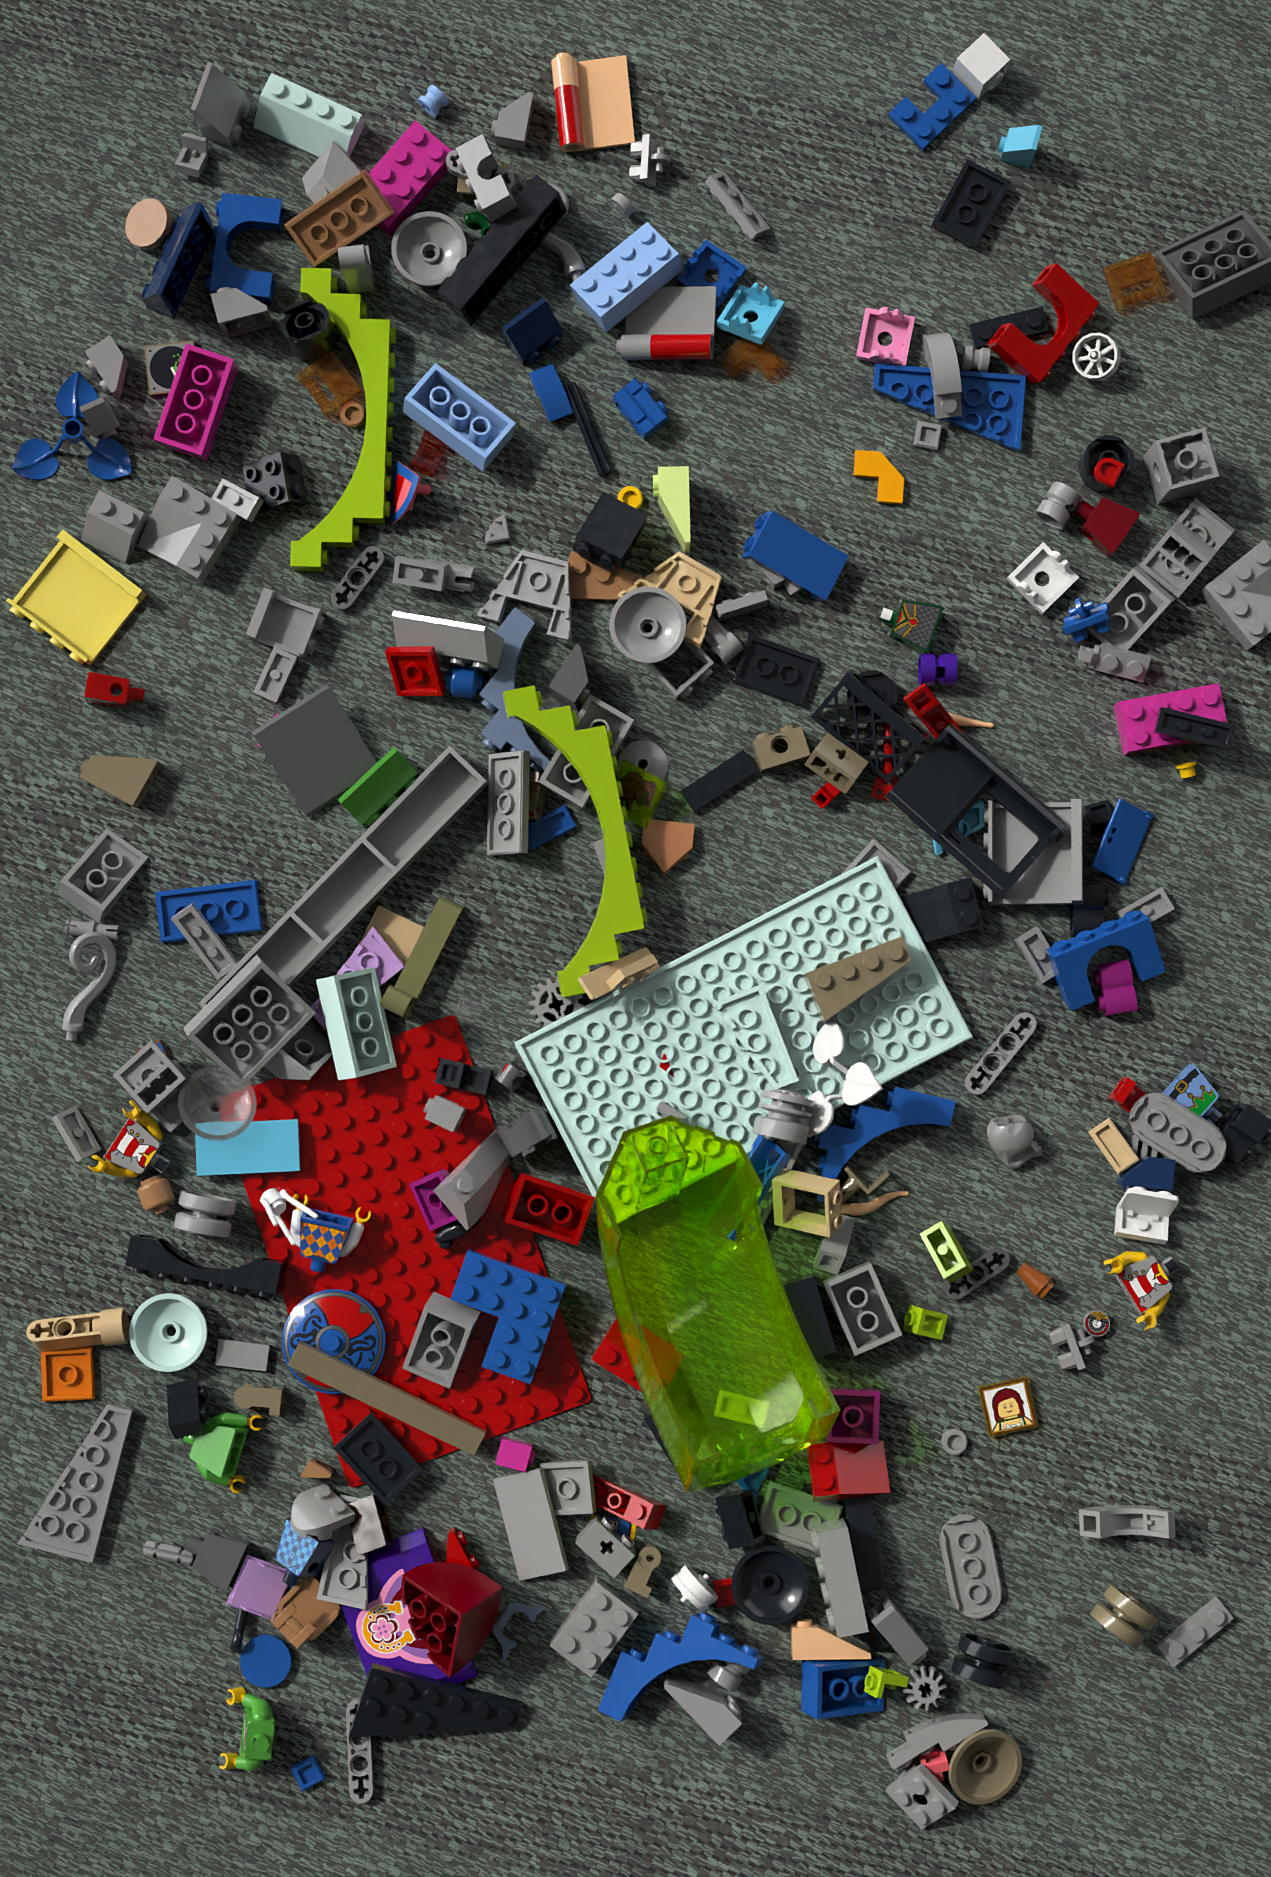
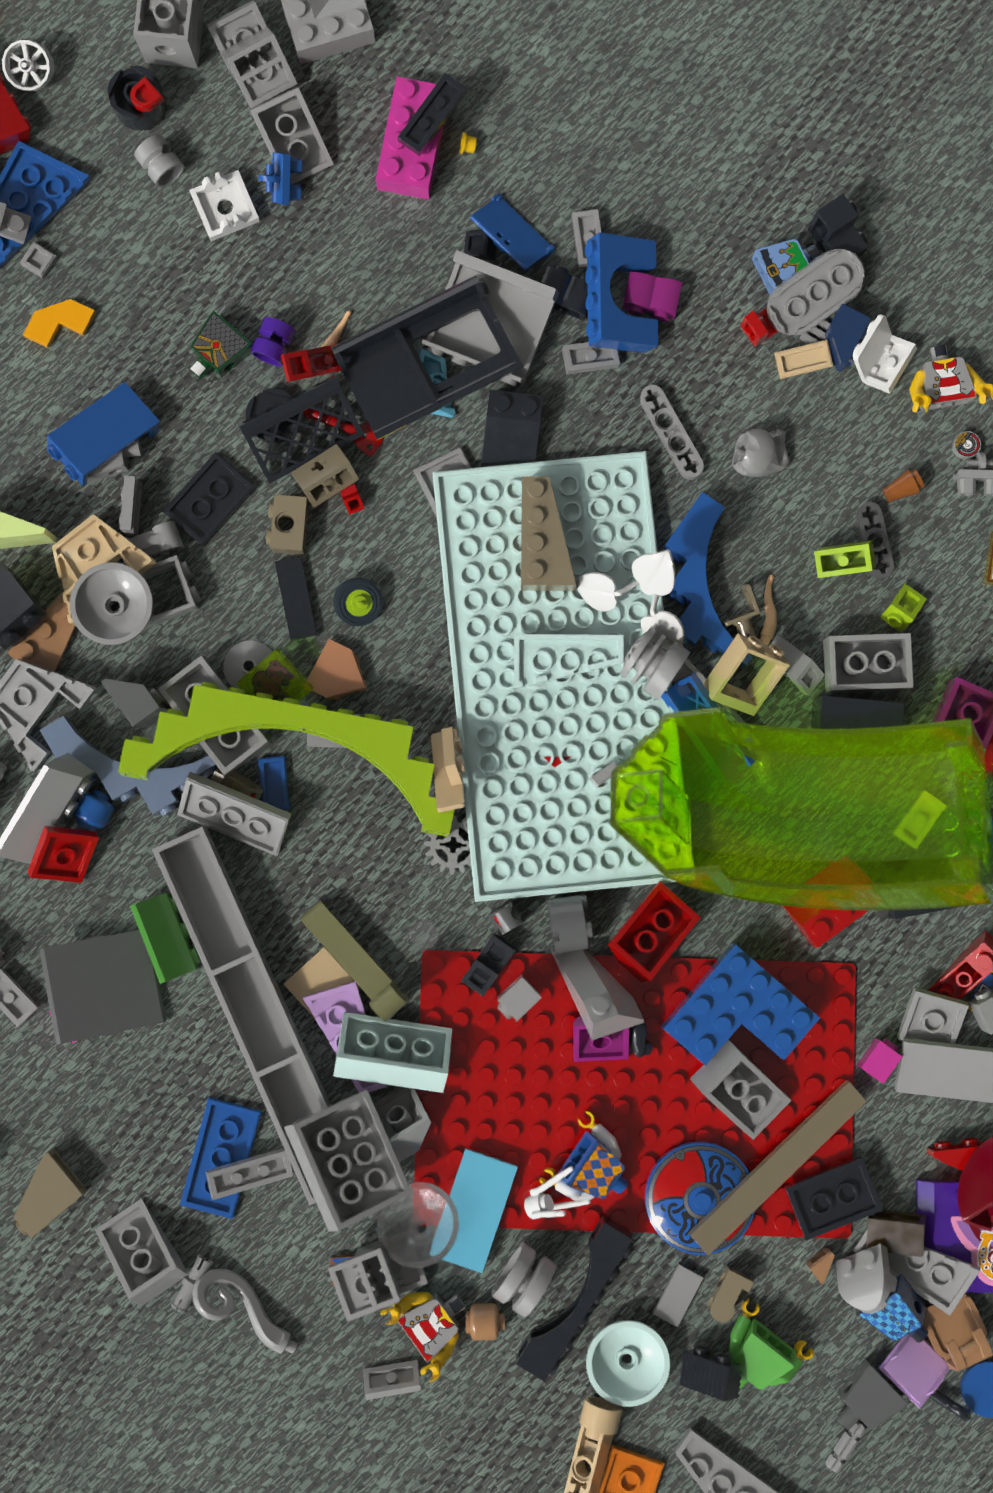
camera: 75 degrees left, 0 degrees up
(736, 836) = (357, 601): none -> black wheel
(1106, 523) = (196, 123): dark red torso -> none
(1116, 661) = (335, 168): light grey hinge -> none

